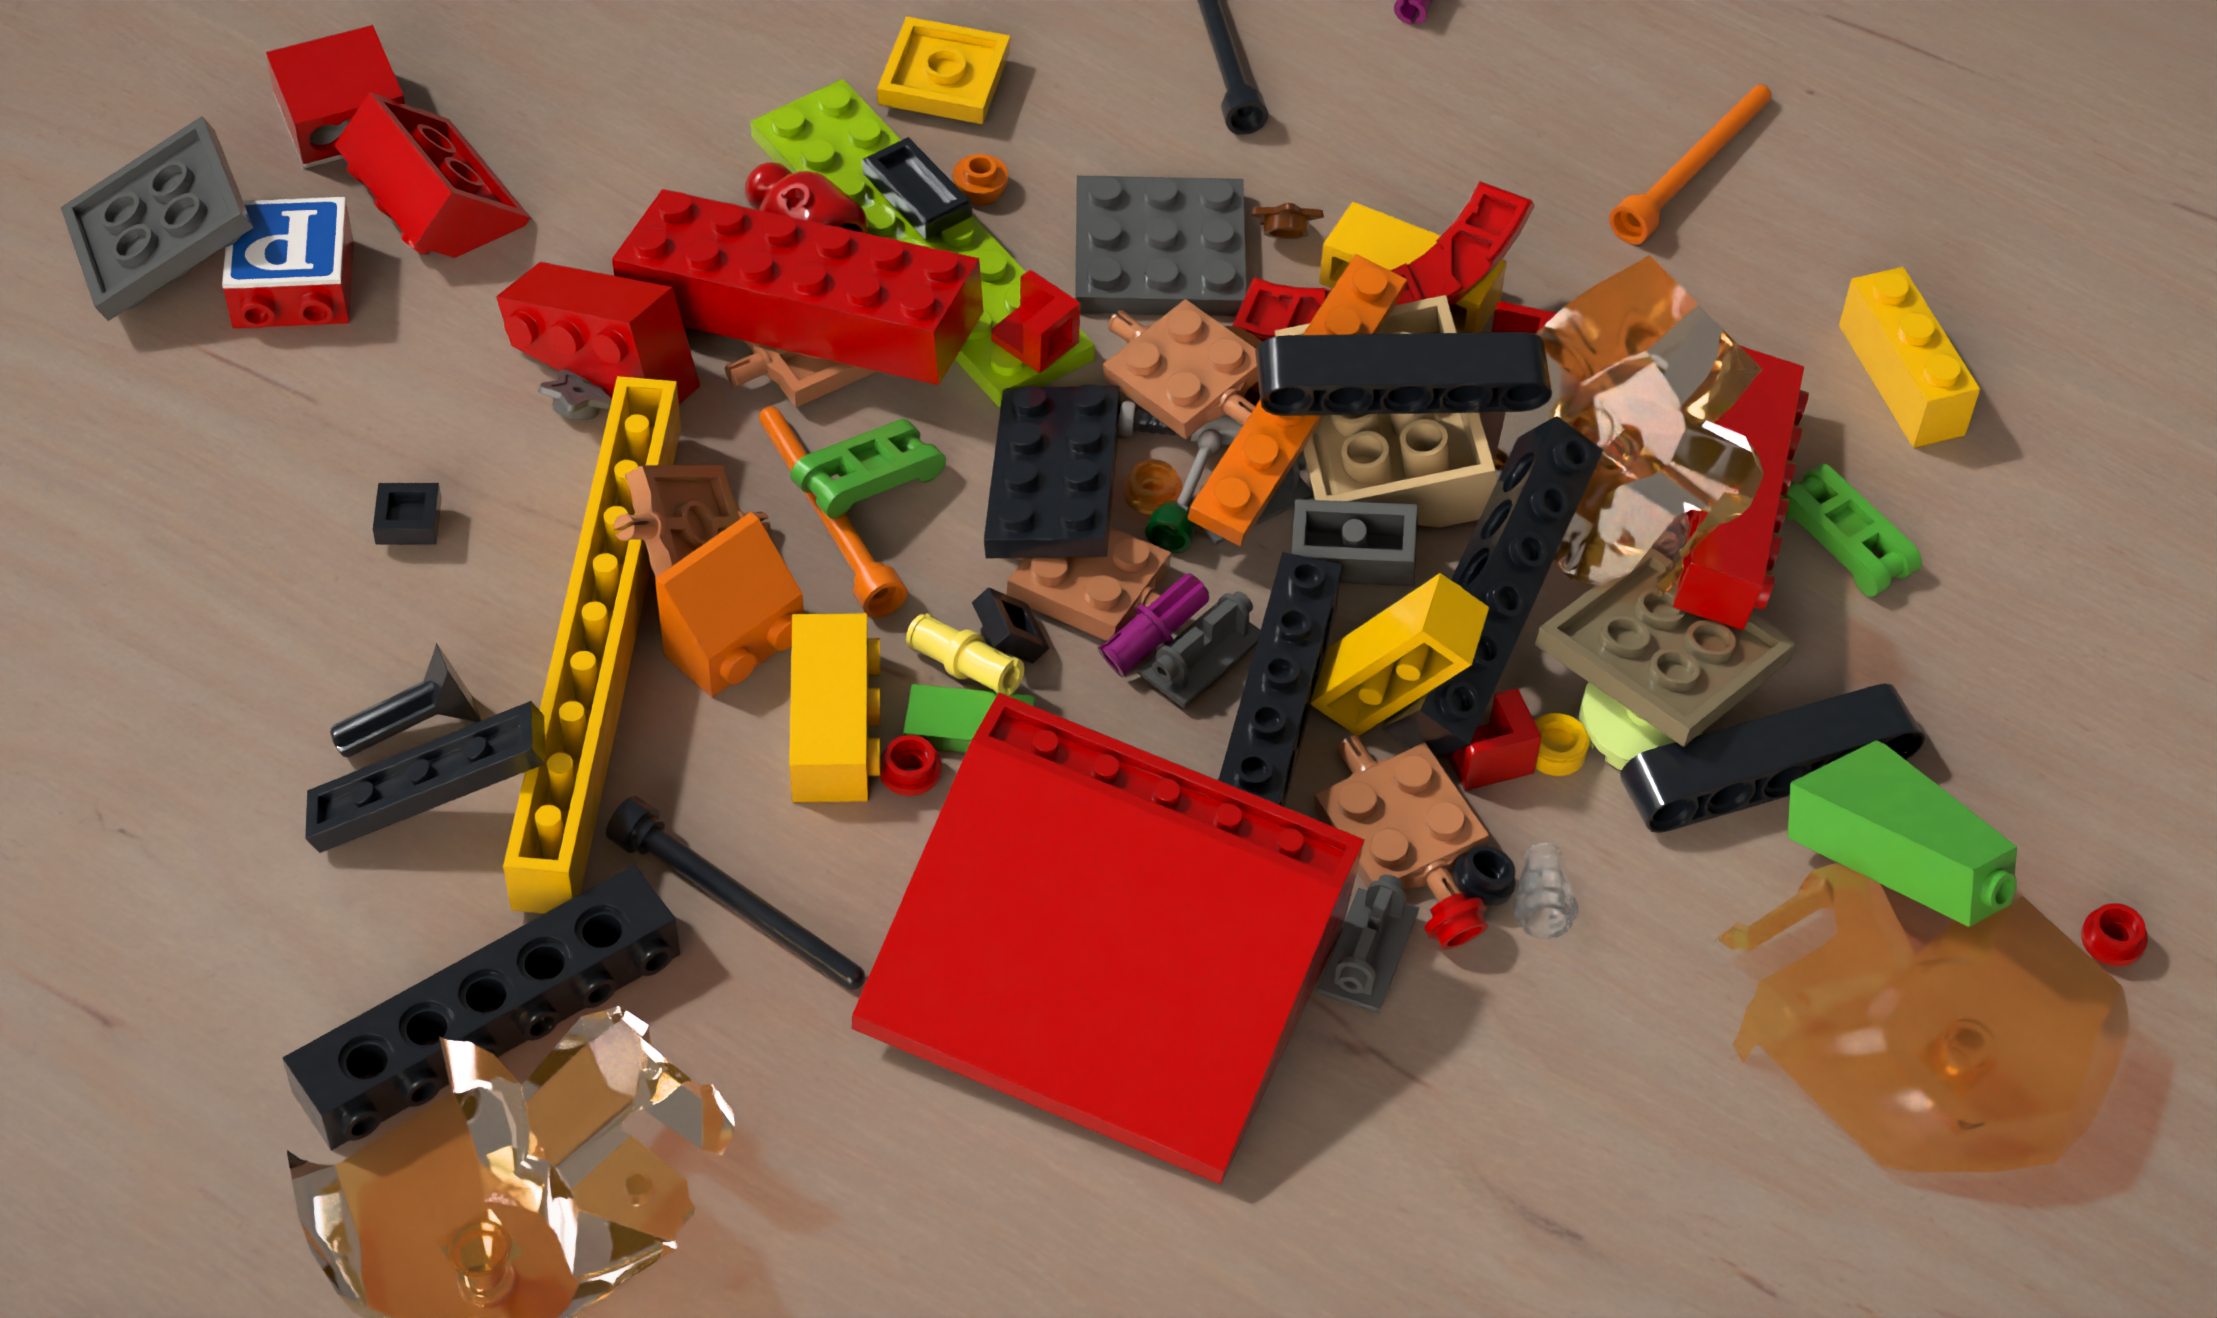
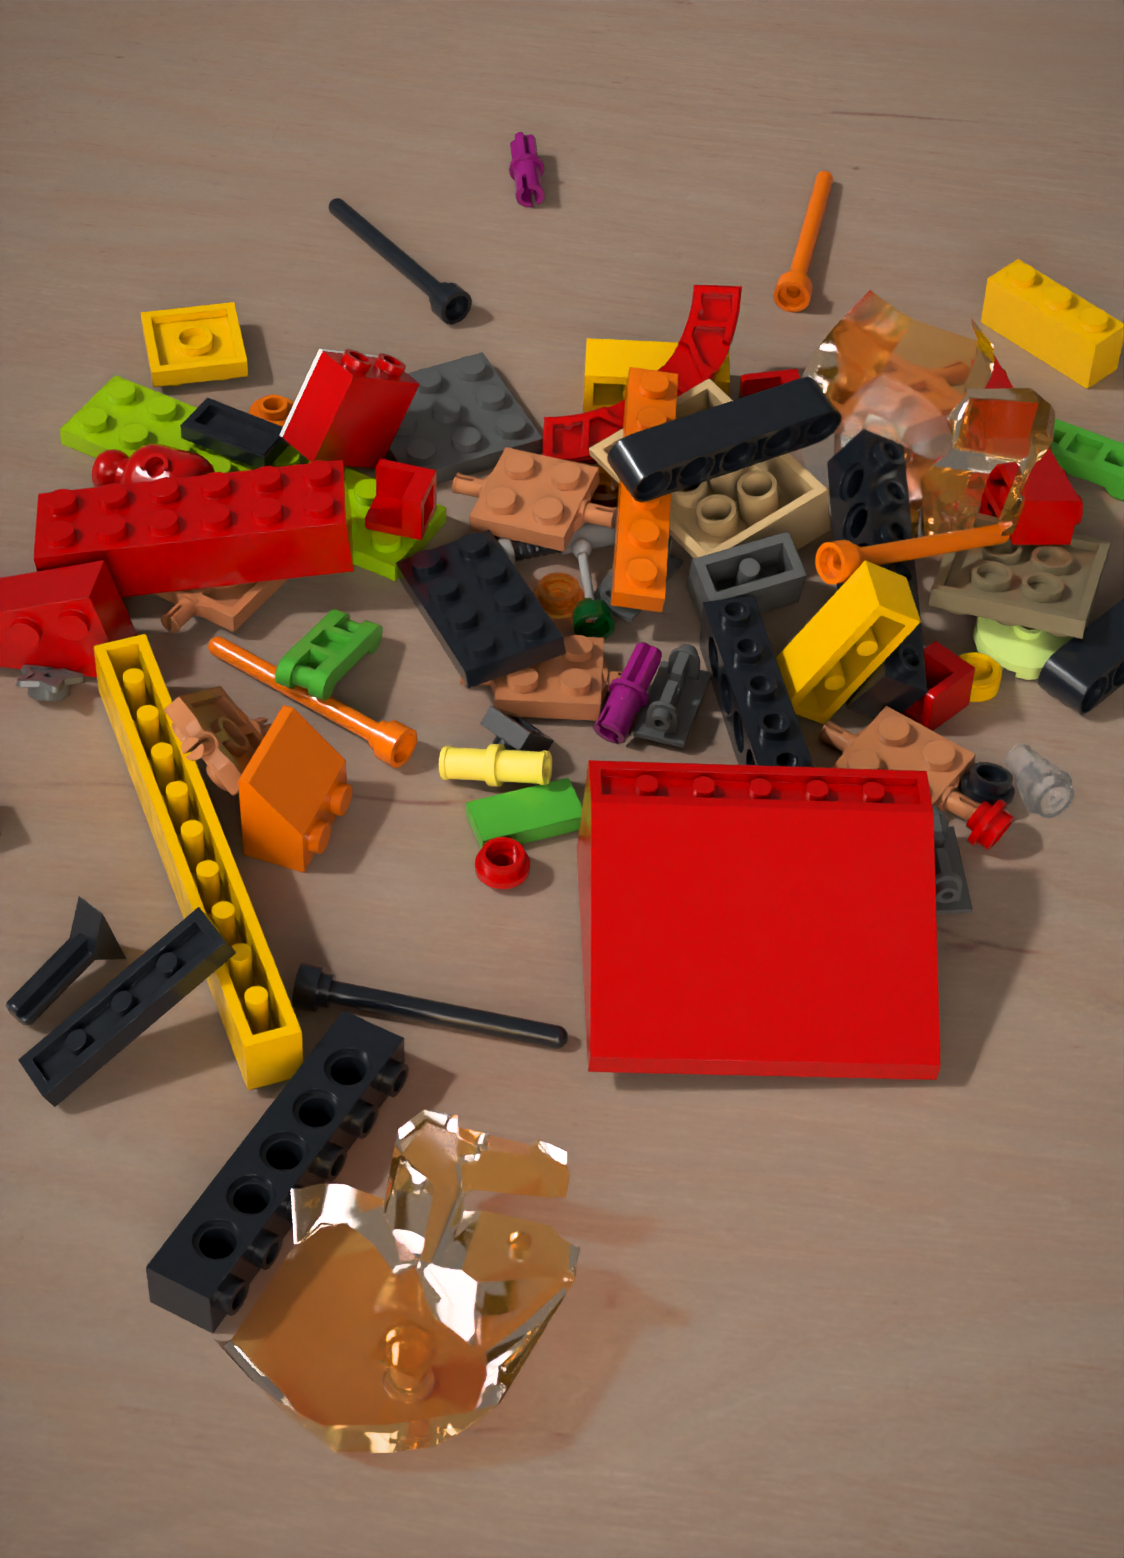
camera: 25 degrees left, 5 degrees down
(833, 708) = (415, 841): yellow brick -> none
(1037, 200) = (349, 407): none -> red piece
(1286, 220) = (537, 371): reddish brown plate -> none
(1425, 558) = (841, 558): none -> orange piece

